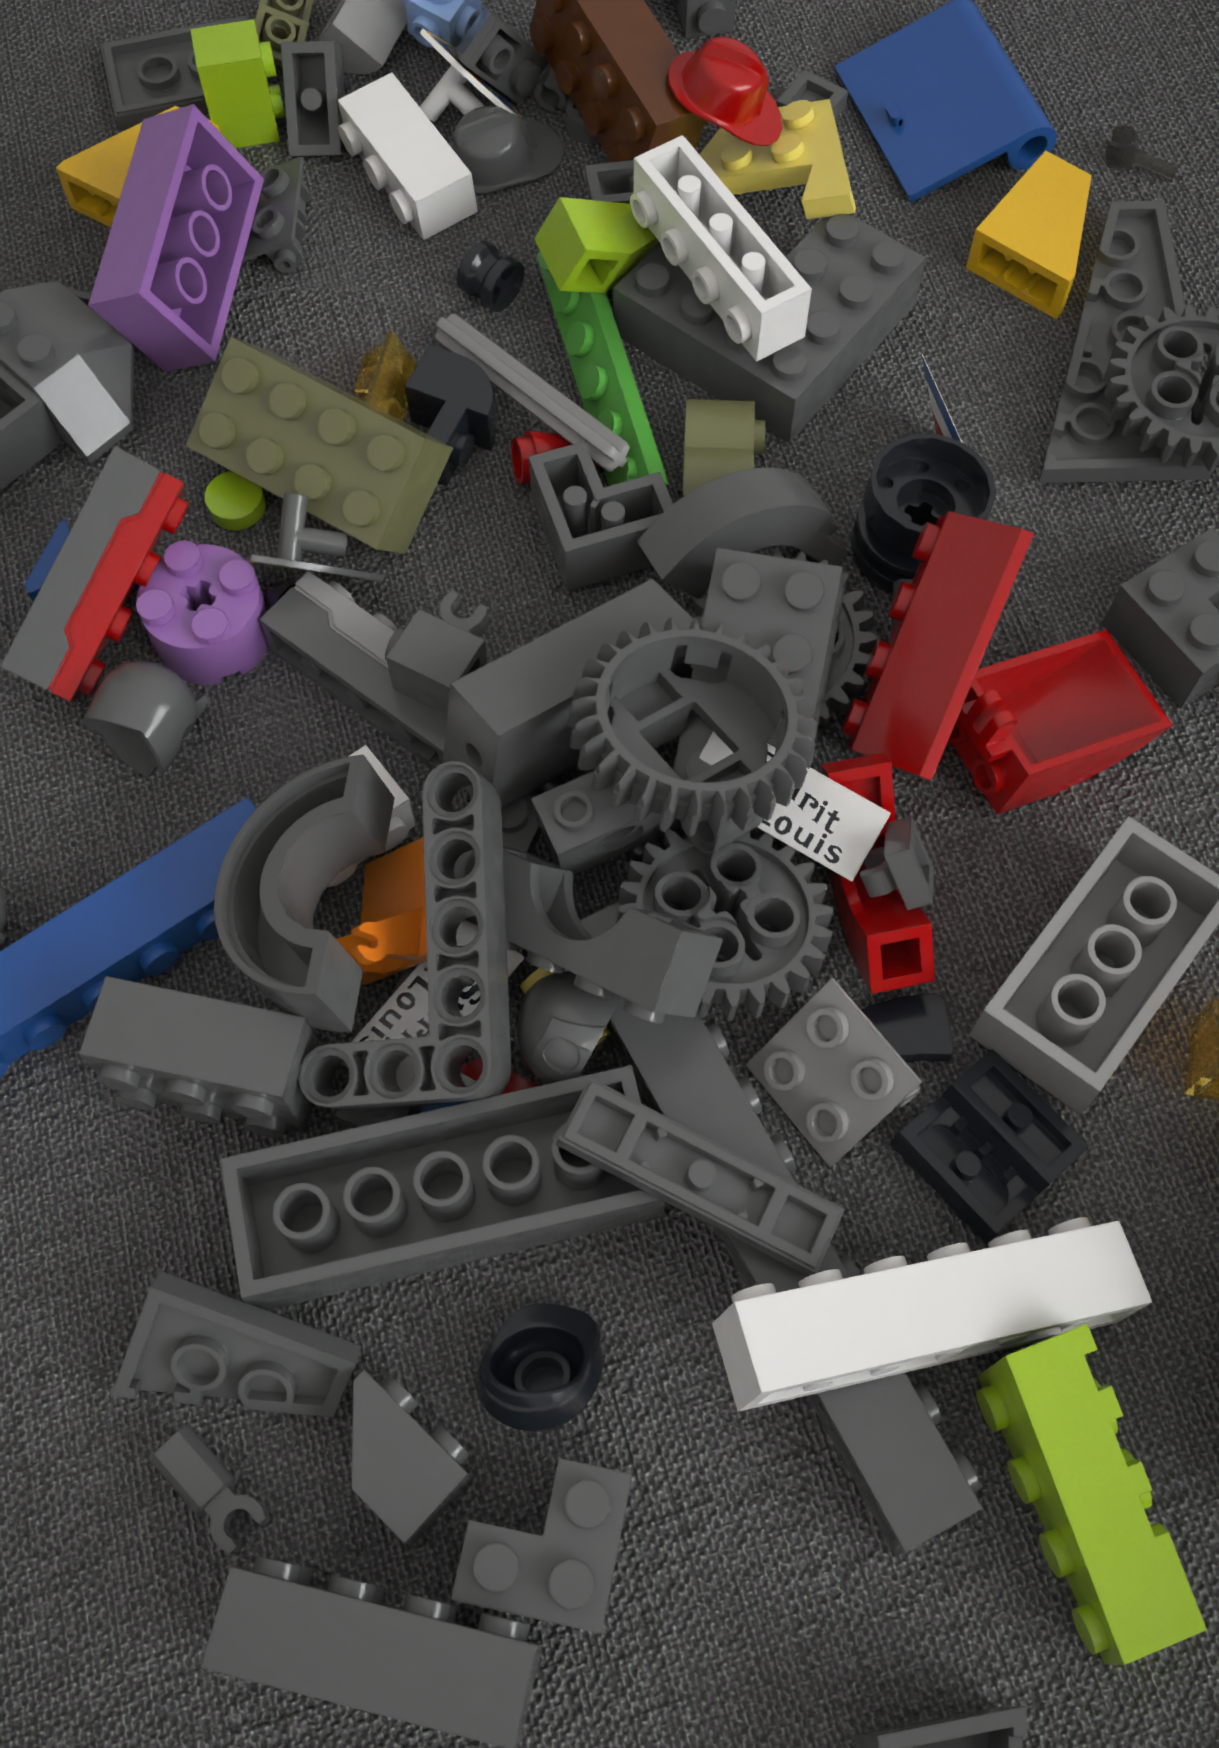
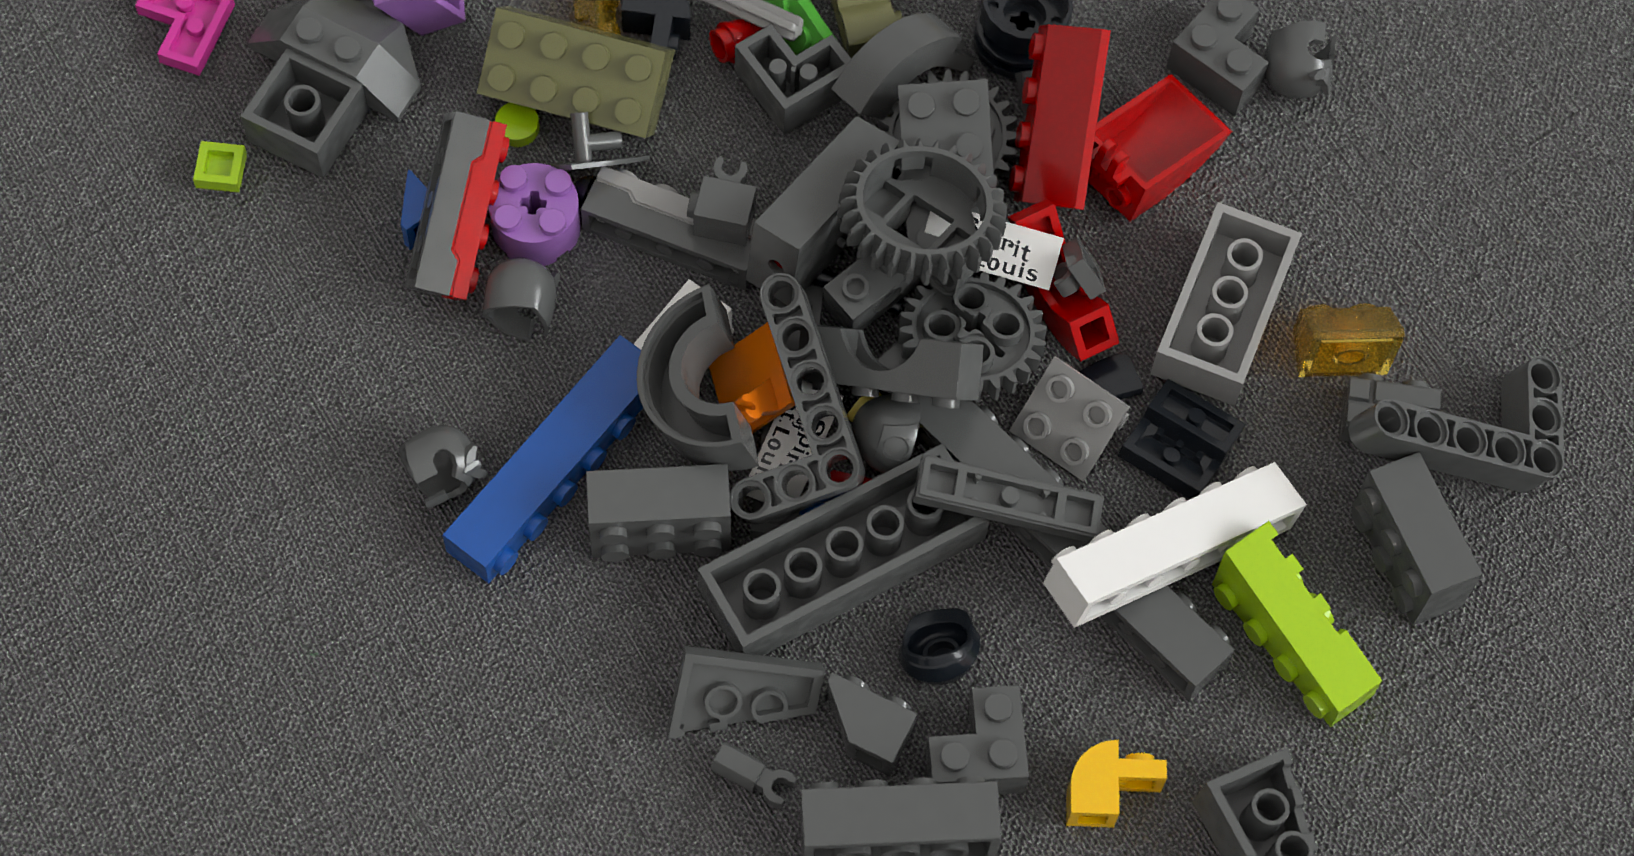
camera: 20 degrees left, 0 degrees up
(709, 1662) = (1099, 777): none -> yellow brick

